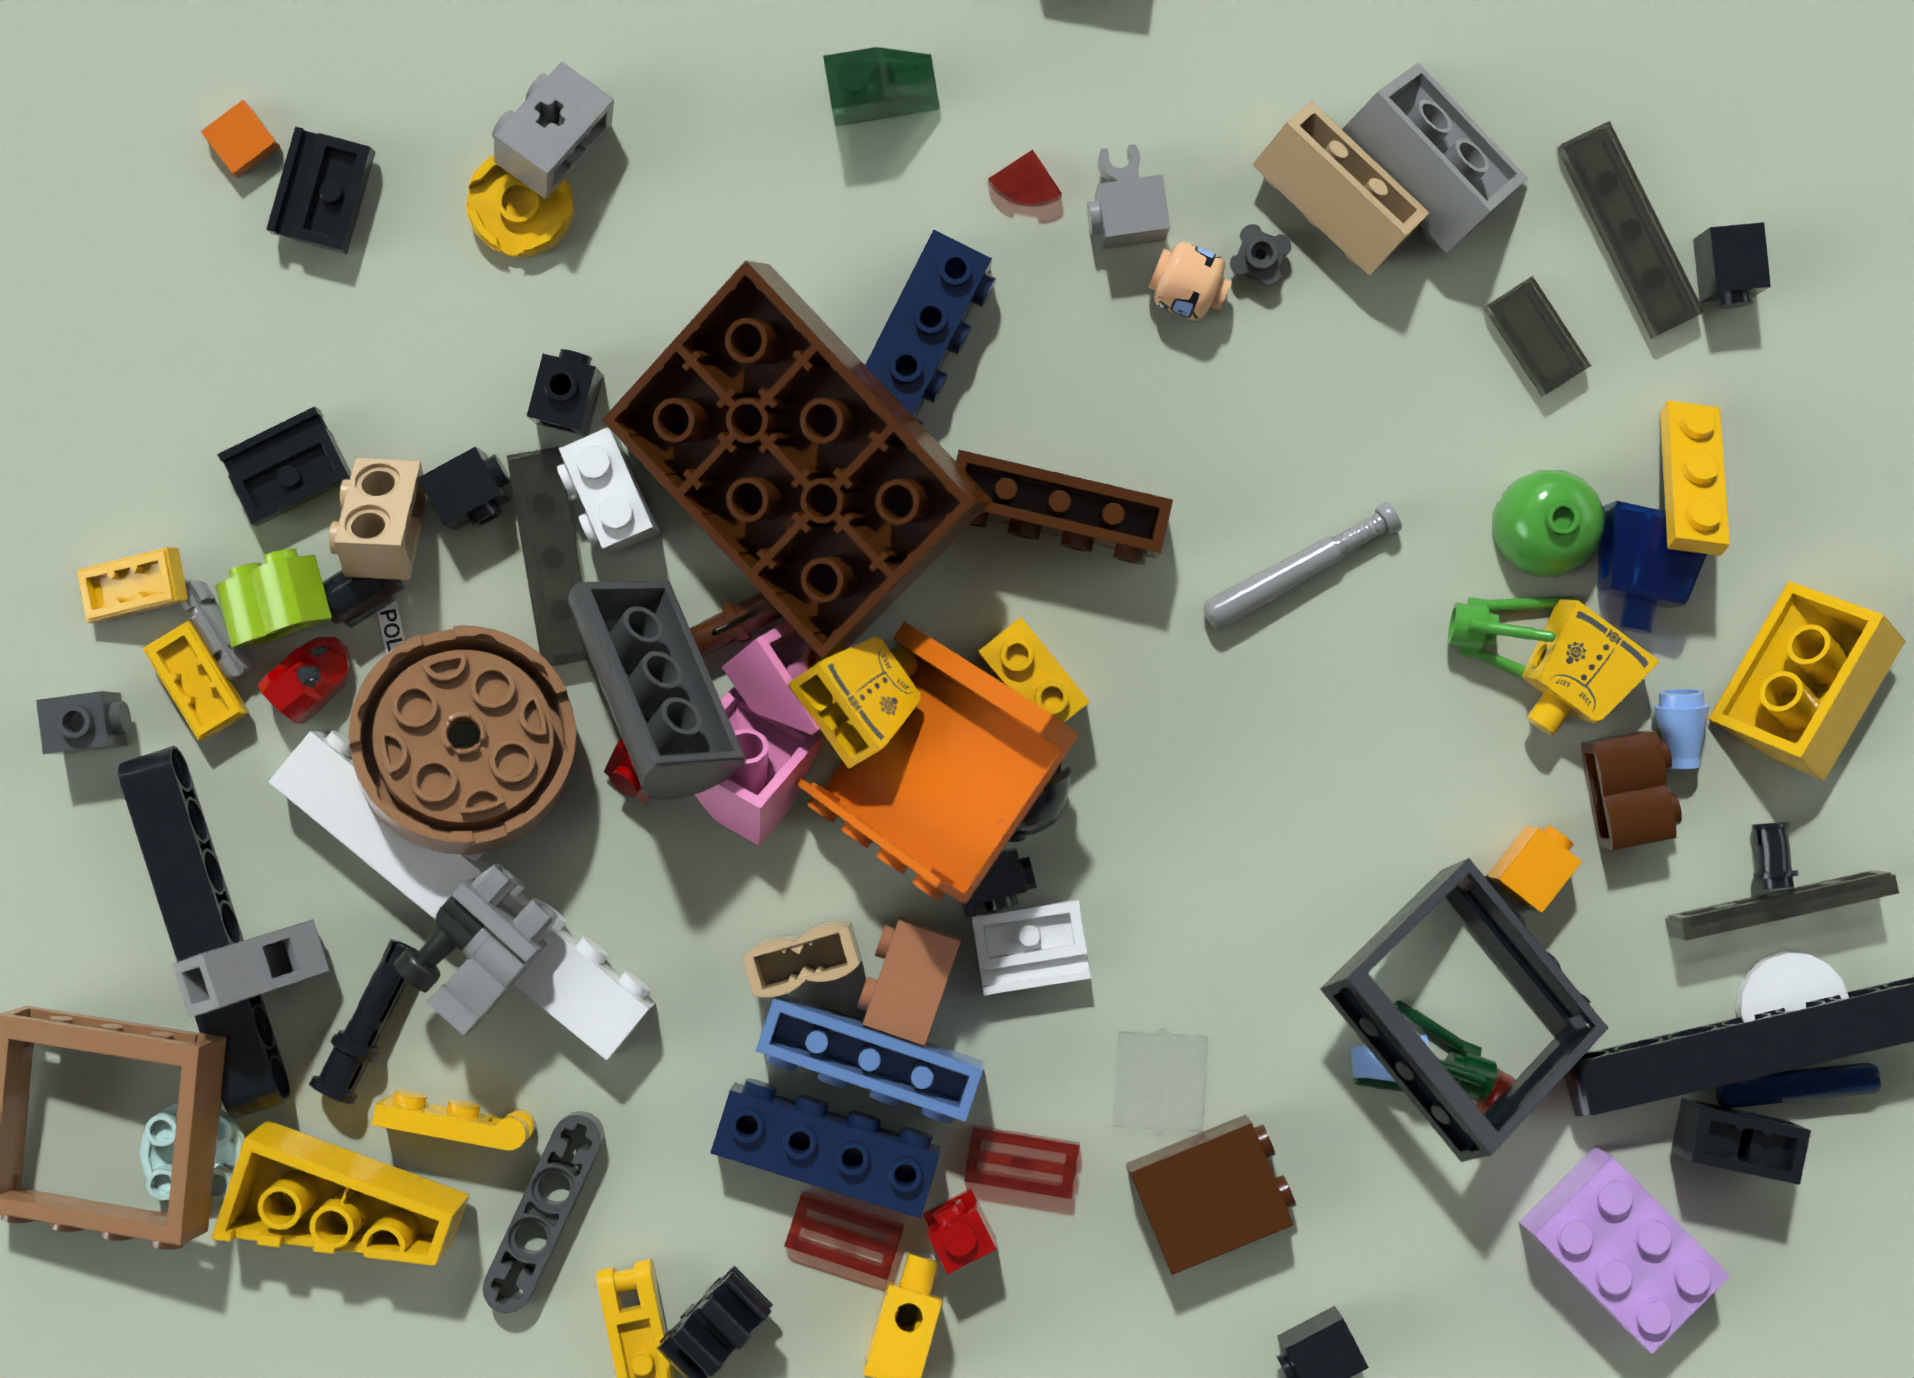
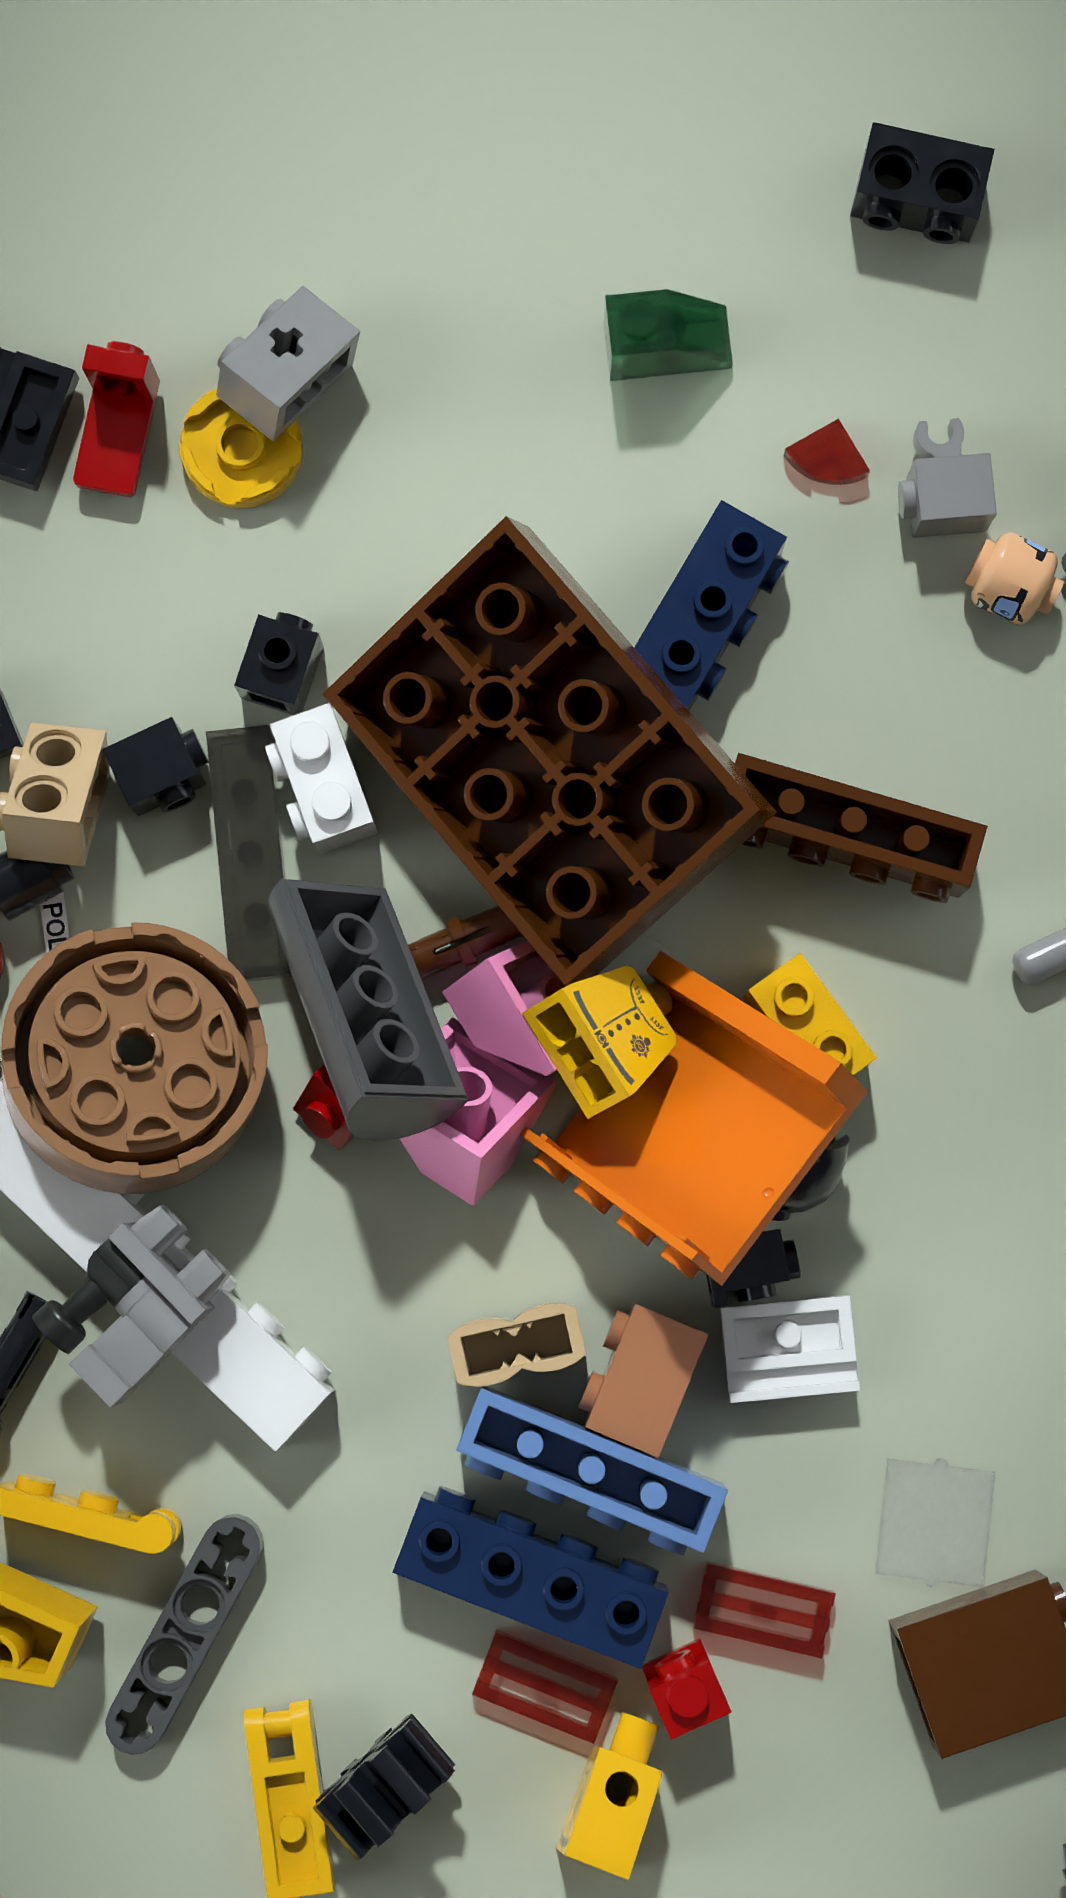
camera: 10 degrees right, 5 degrees down
(410, 187) = (116, 419): none -> red bracket

